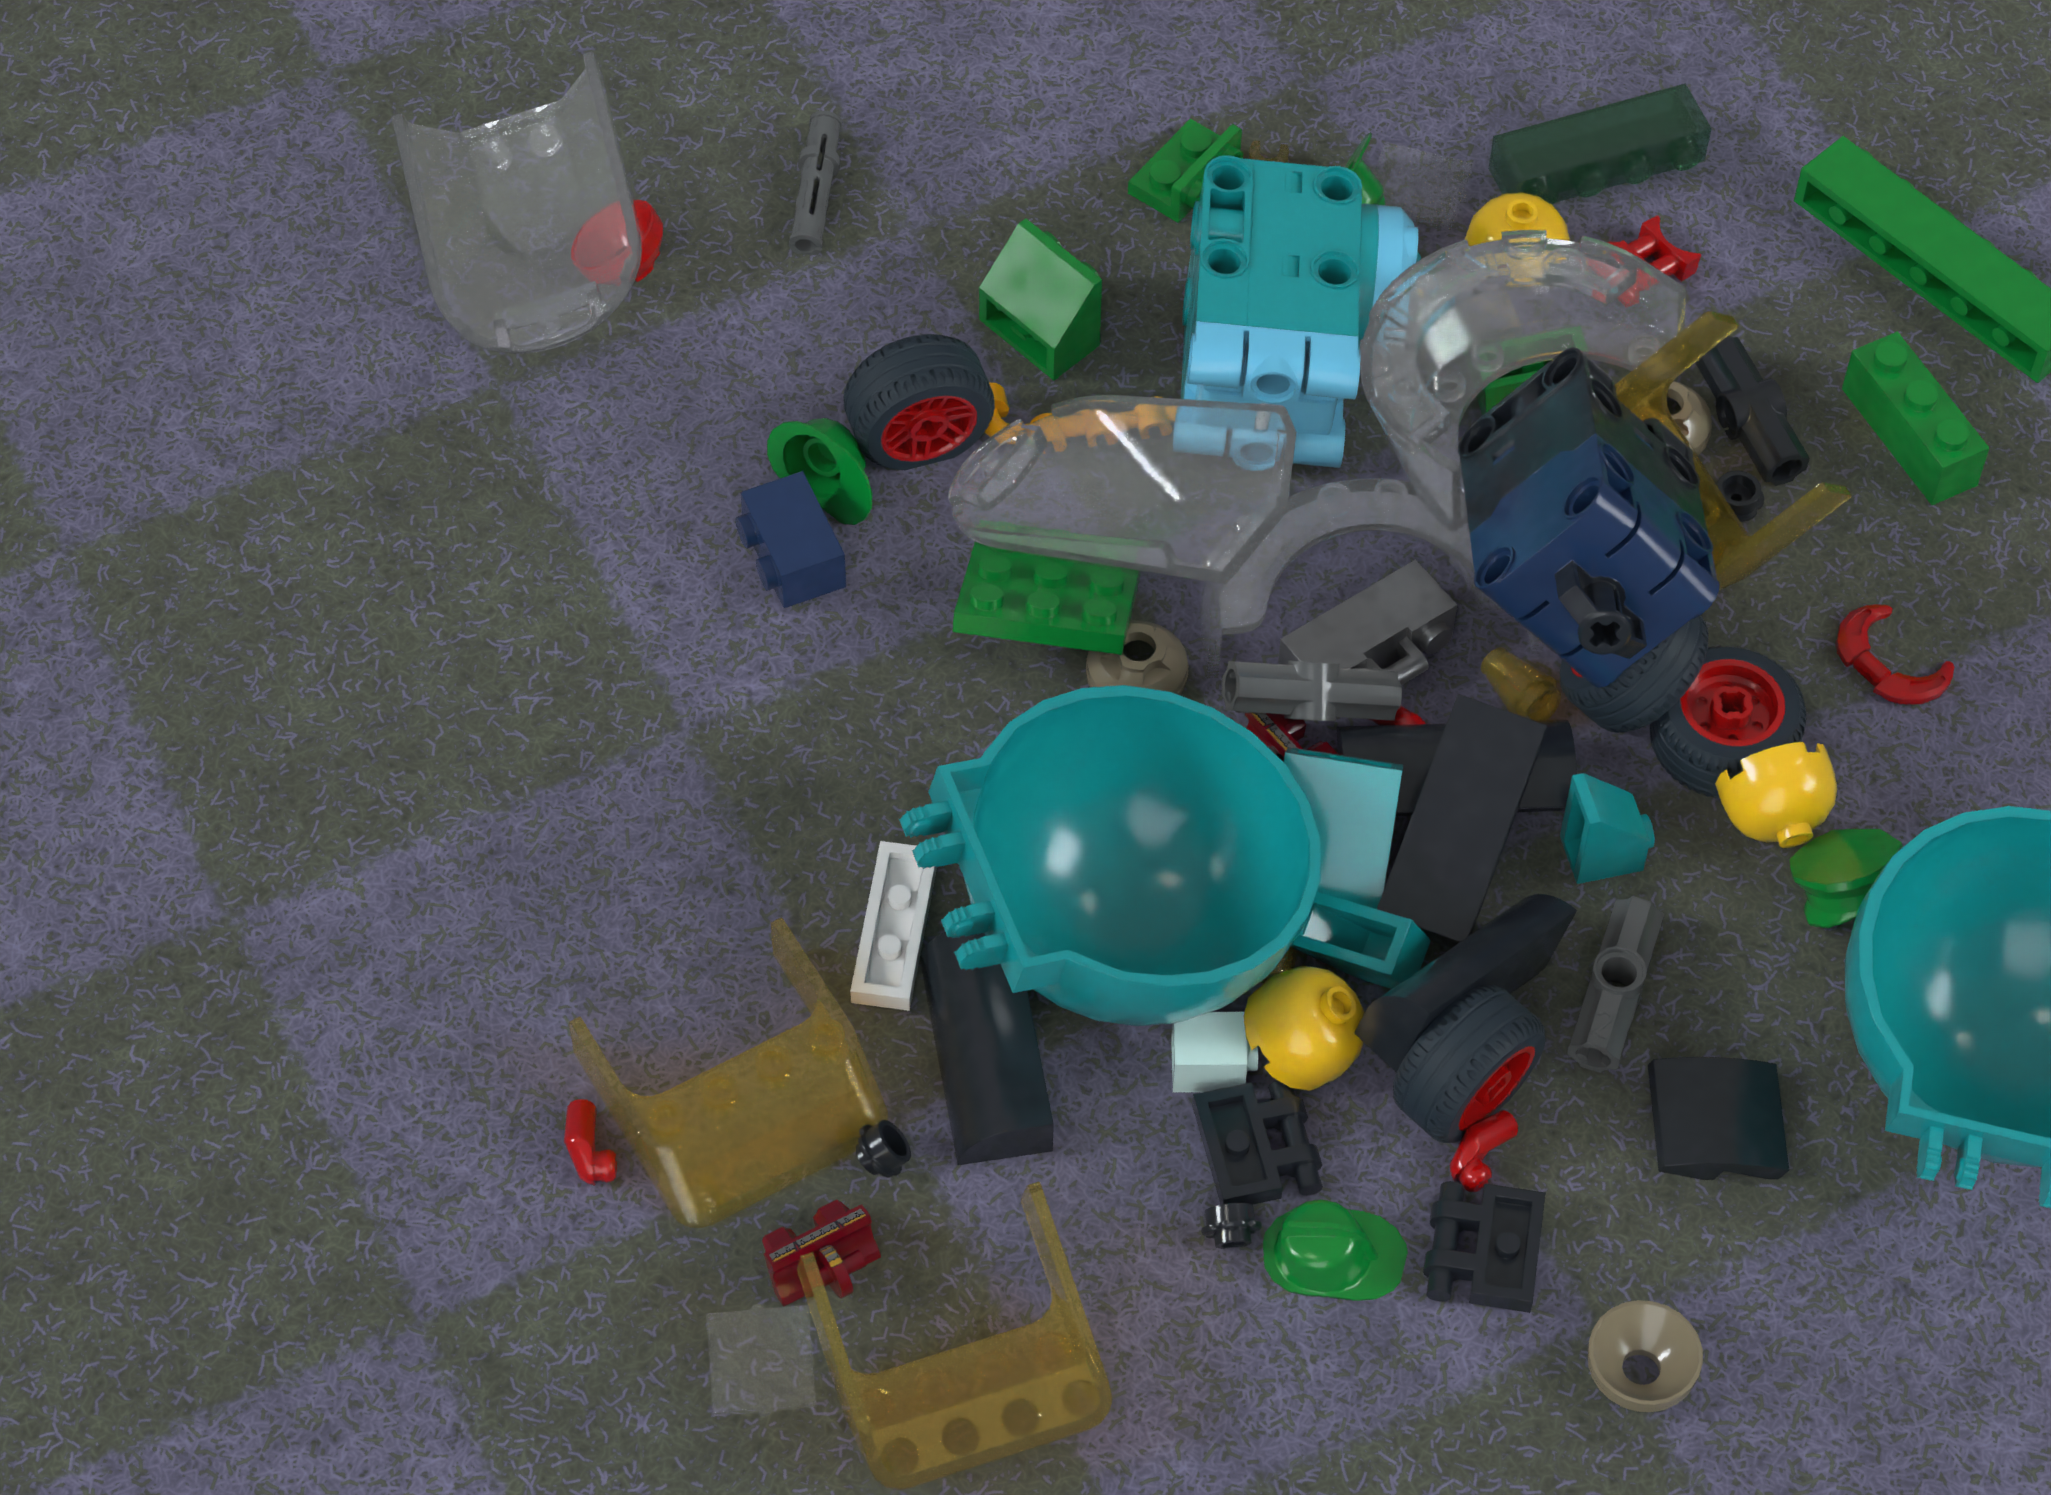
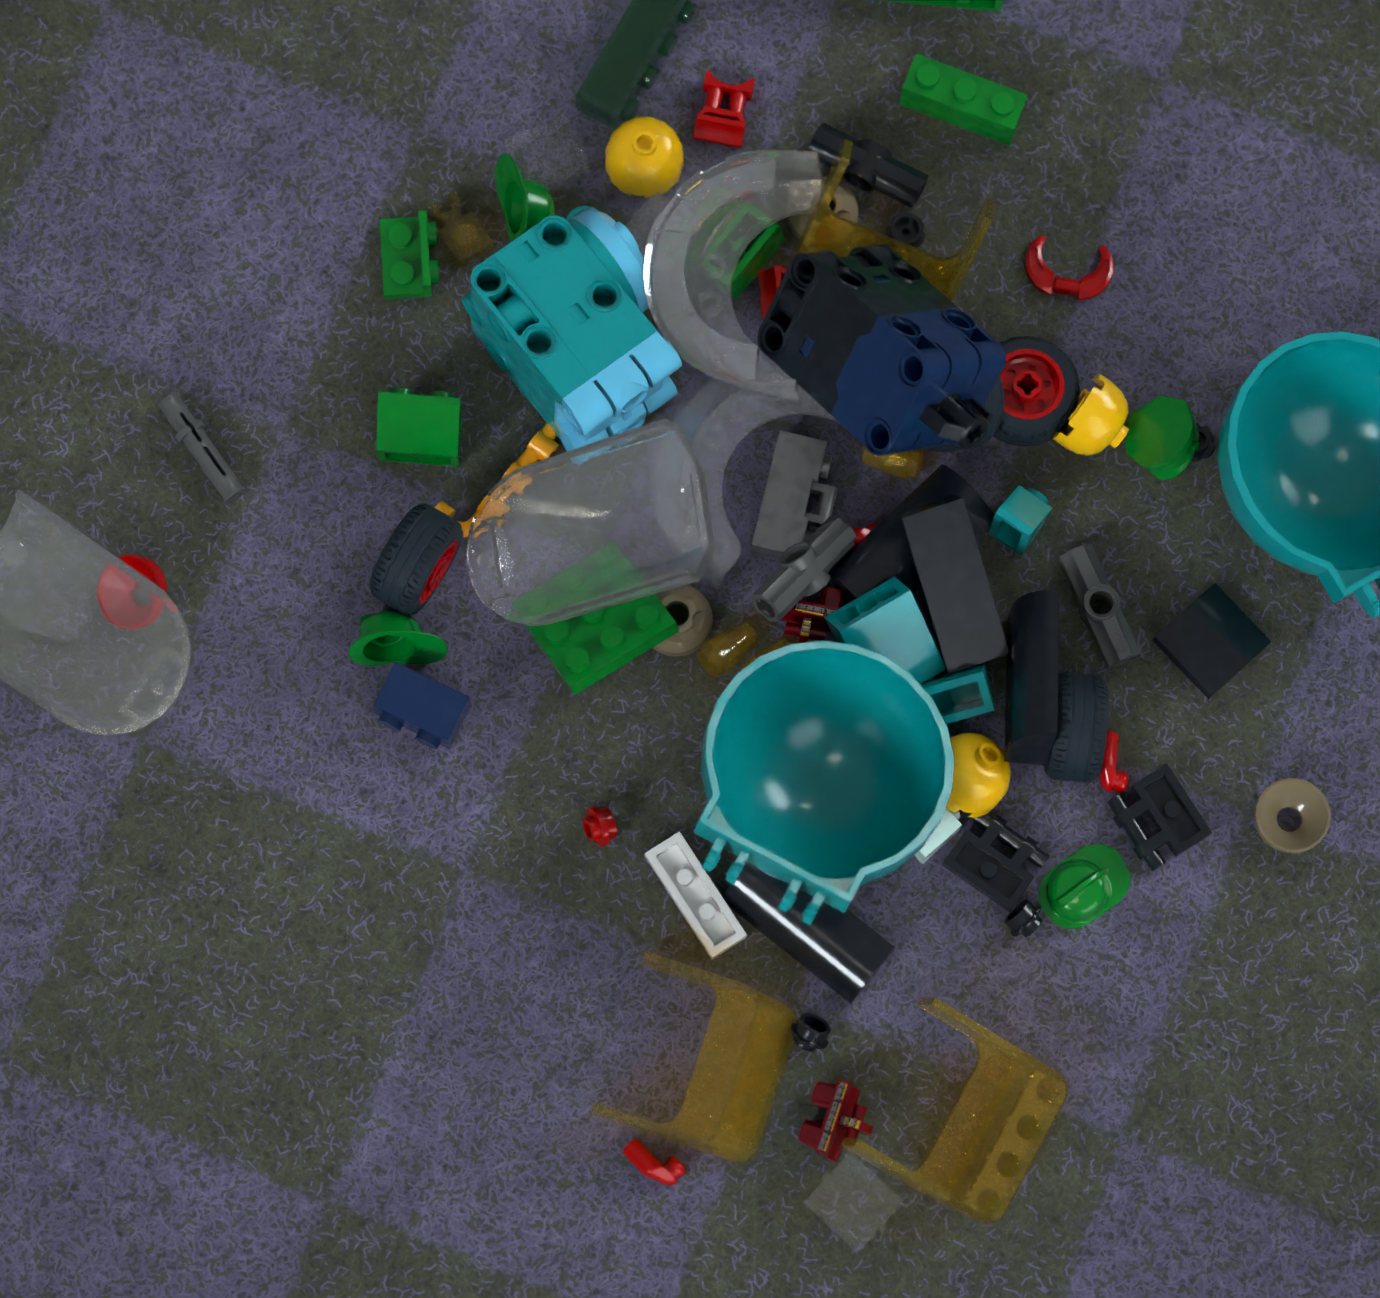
camera: 45 degrees left, 20 degrees up
(861, 784) = (599, 825): none -> red plate

